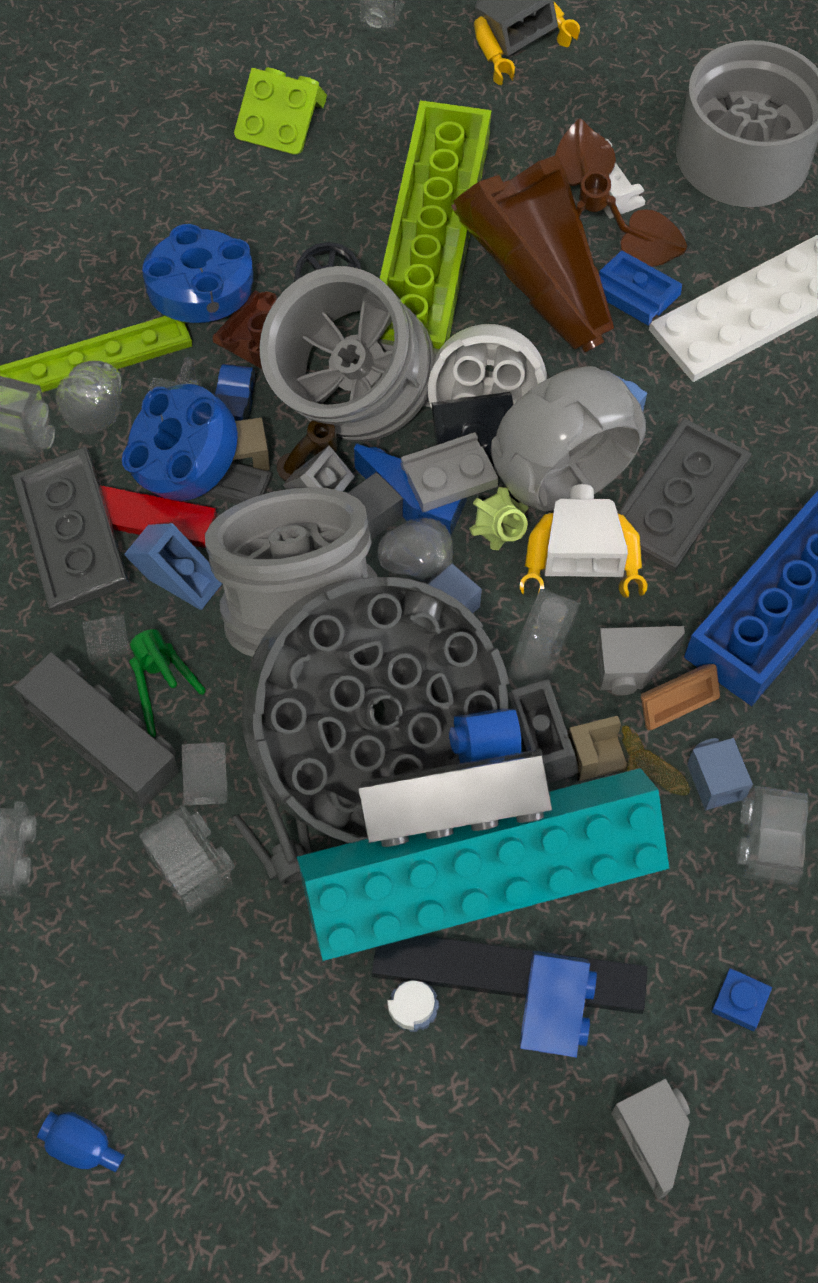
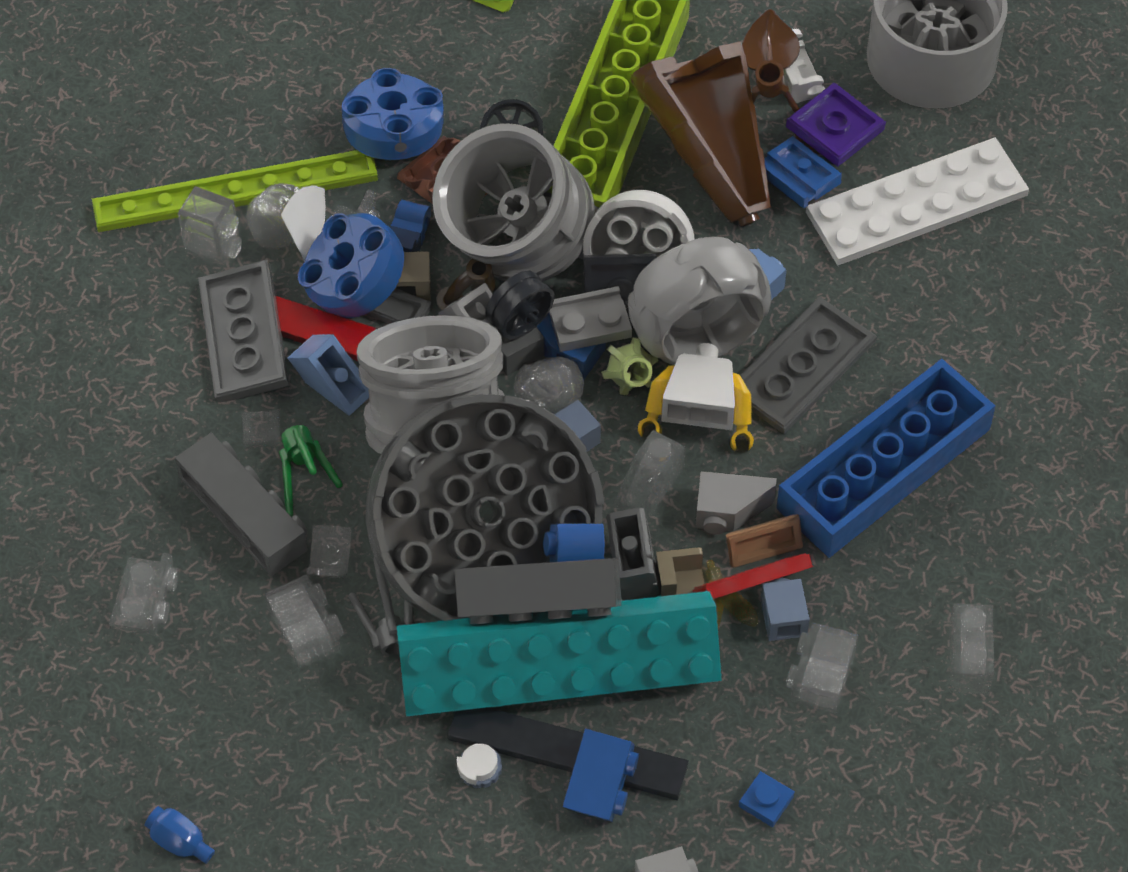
camera: 10 degrees right, 5 degrees down
(121, 395) = (305, 216): none -> white sticker
(374, 466) = (519, 305): none -> black wheel
(664, 233) = (835, 124): none -> dark purple tile
(680, 741) = (756, 576): none -> red tile

